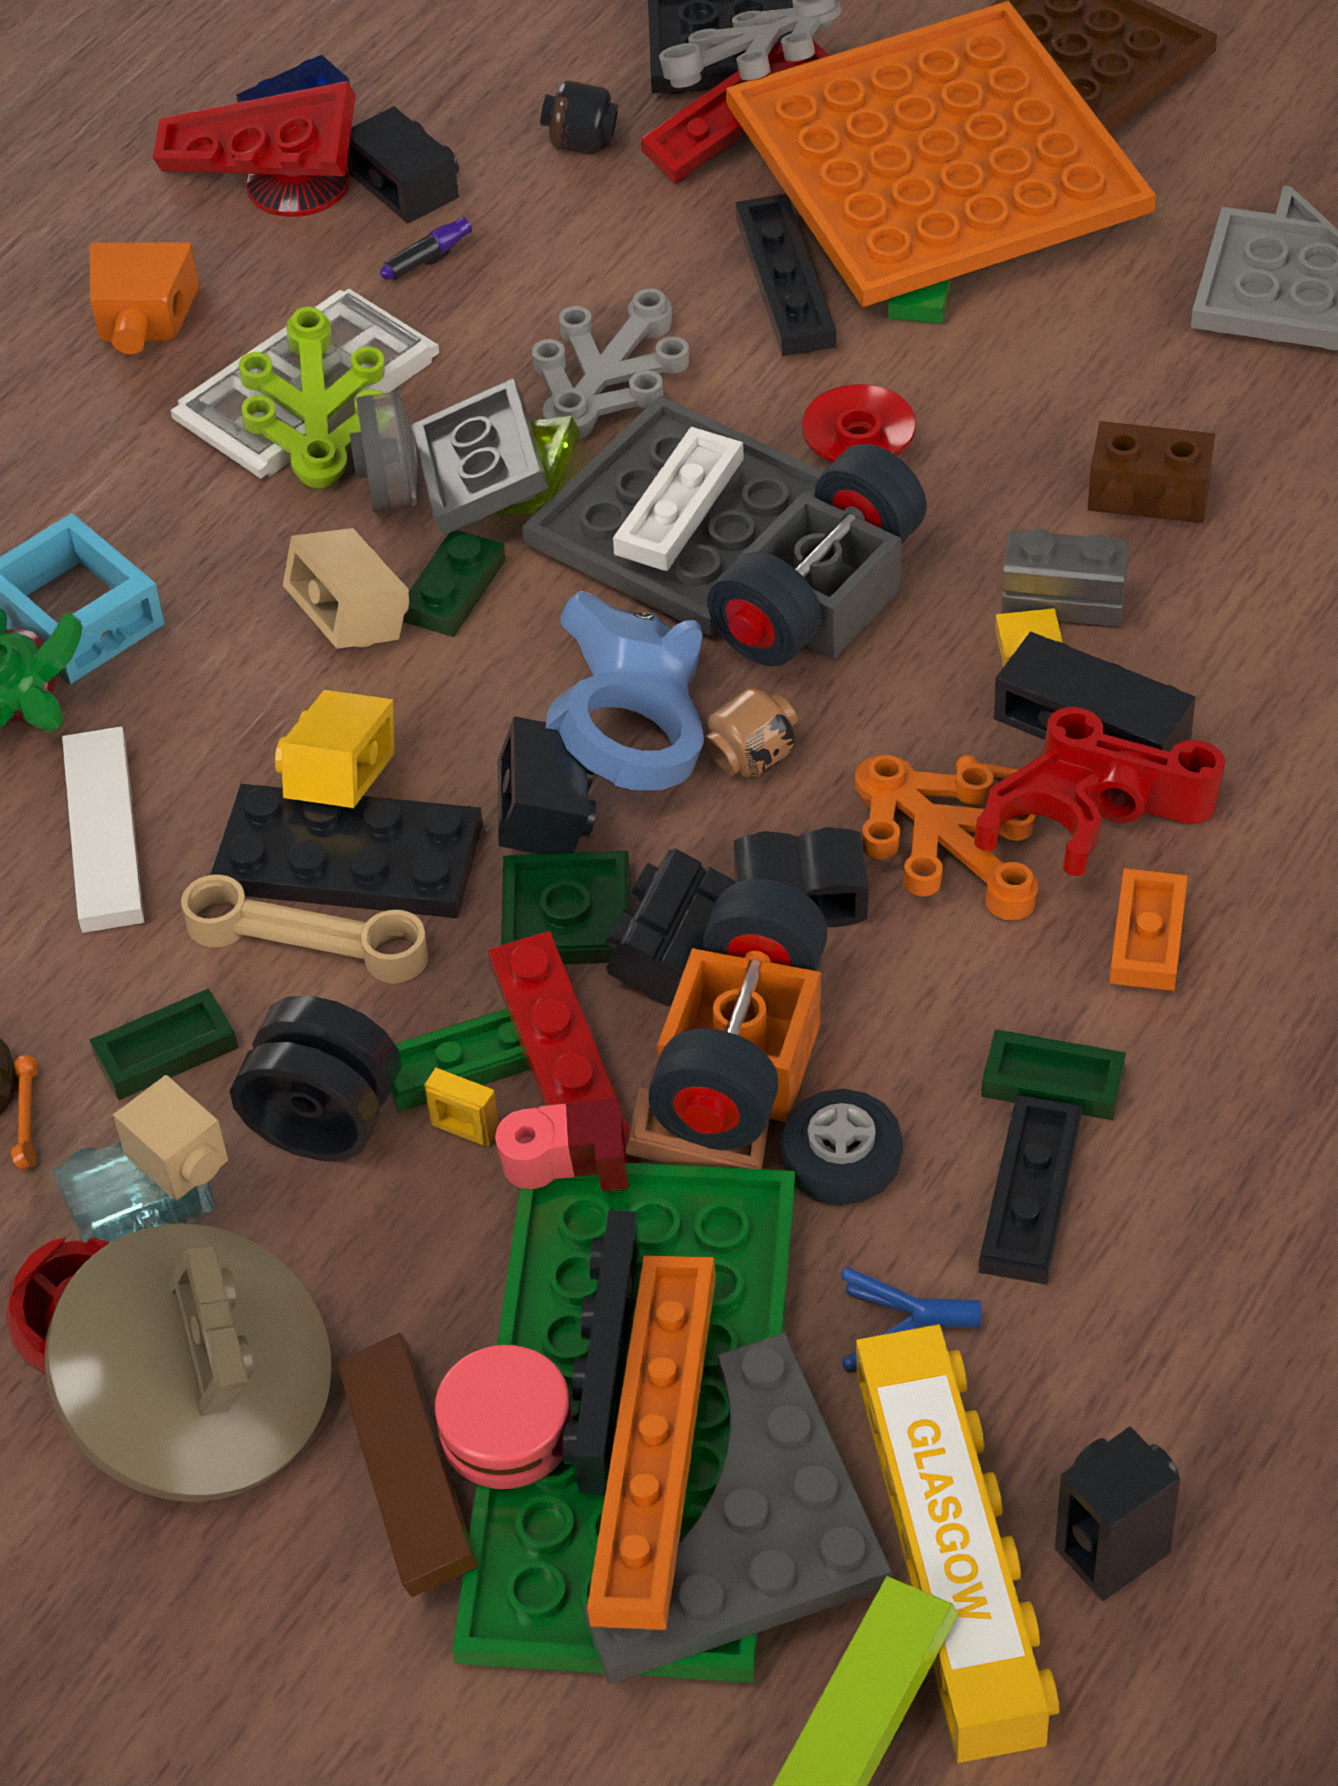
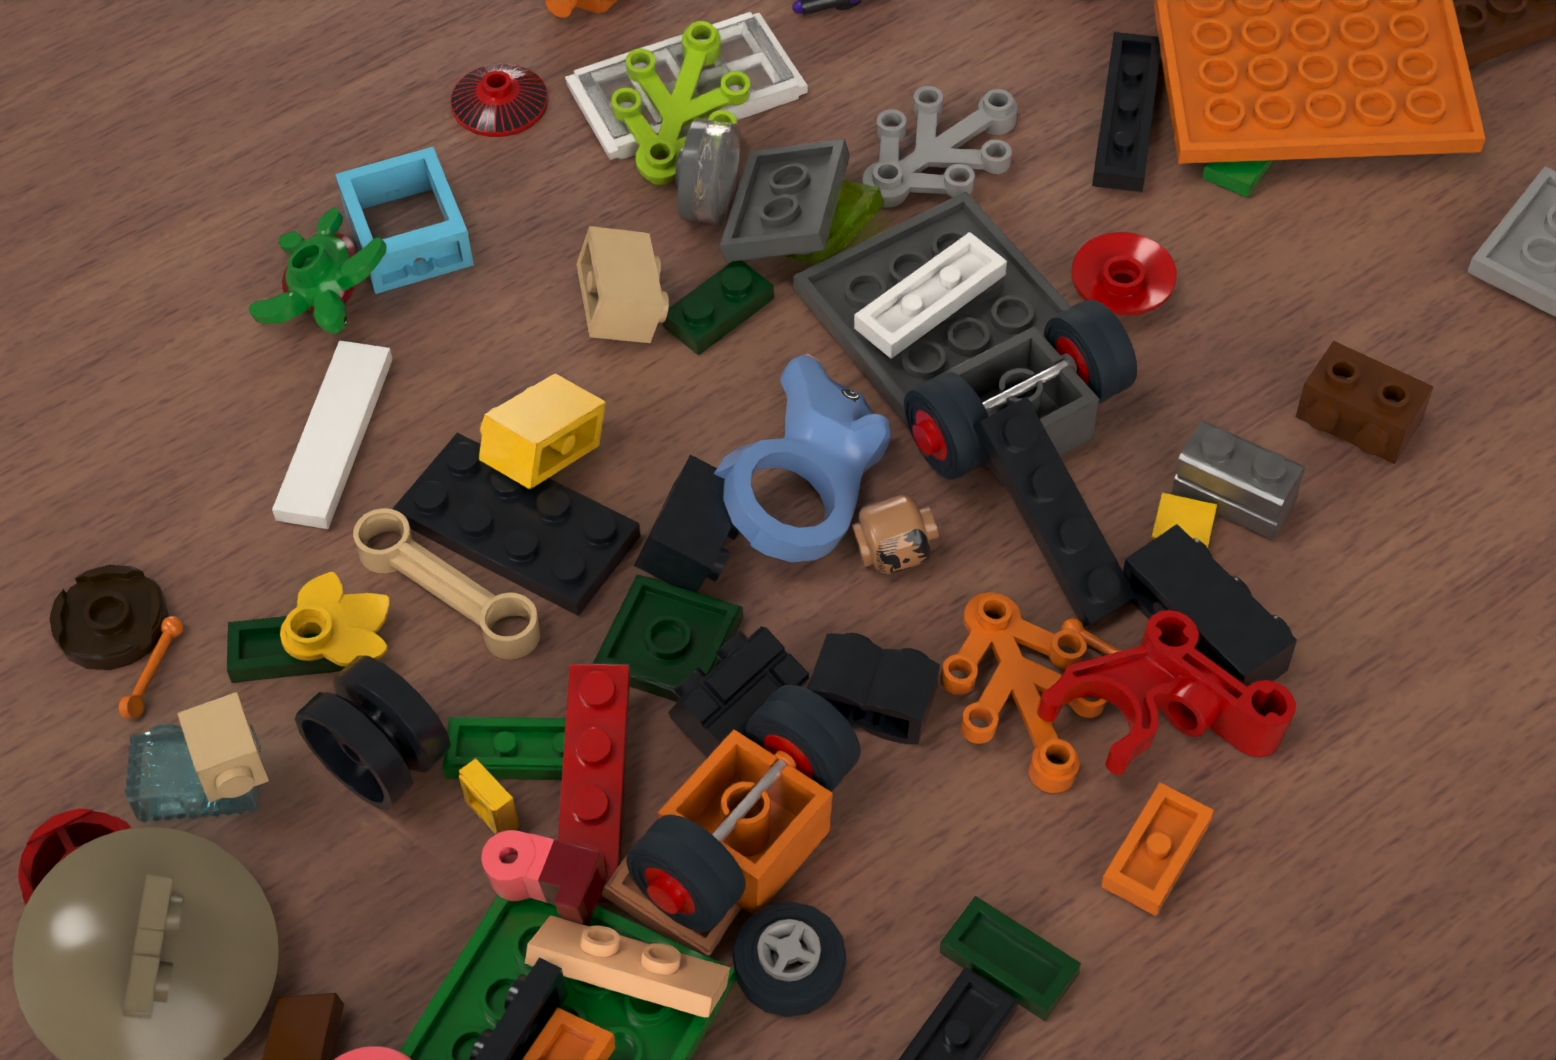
camera: 20 degrees right, 5 degrees up
(105, 455) = (499, 100): none -> dish
(210, 1000) = (343, 623): none -> yellow plate
(720, 1193) = (629, 966): none -> light nougat plate
(906, 655) = (1054, 511): none -> black plate

